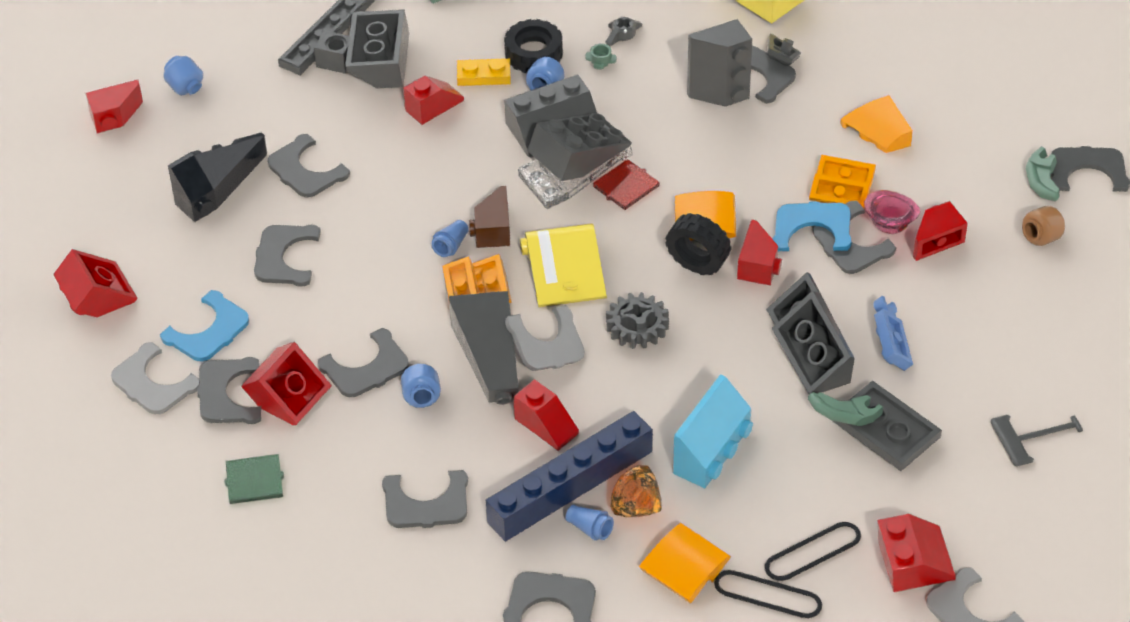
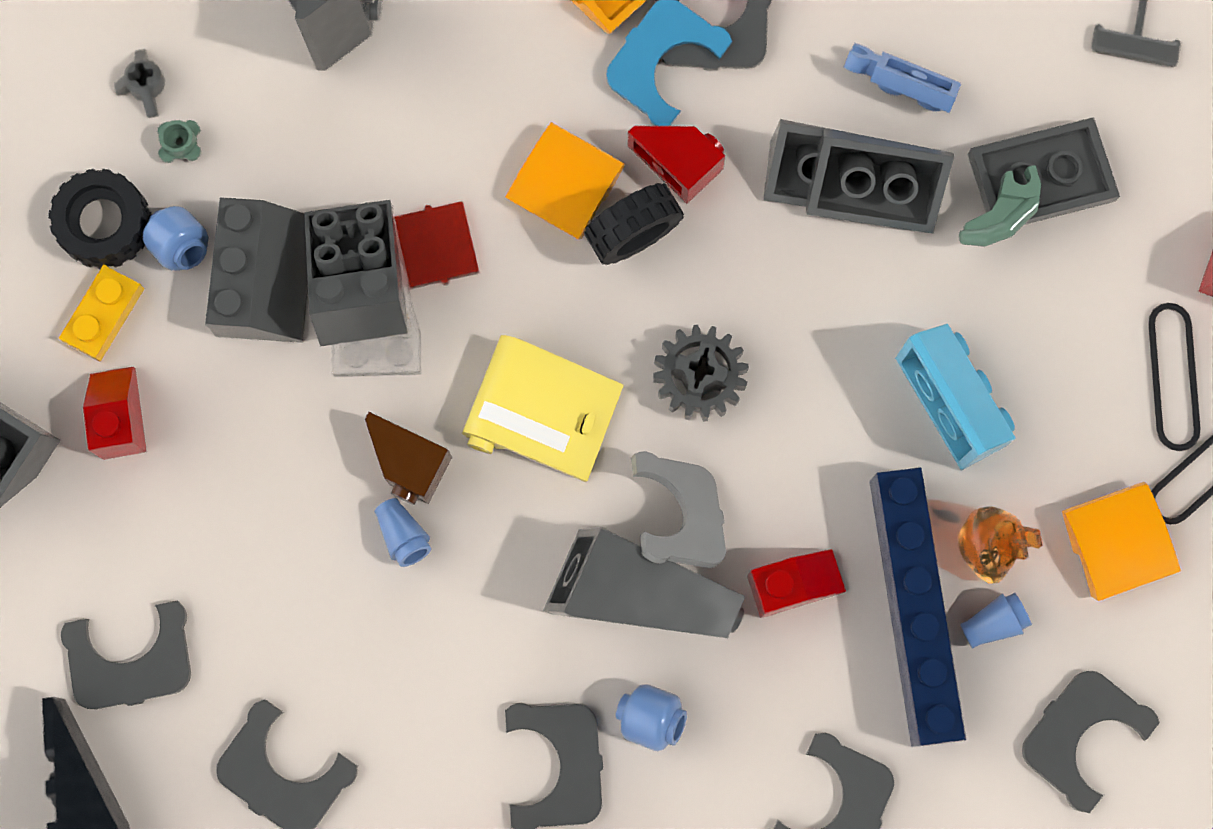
camera: 60 degrees left, 30 degrees up
(483, 276) = (502, 542): light orange slope -> none

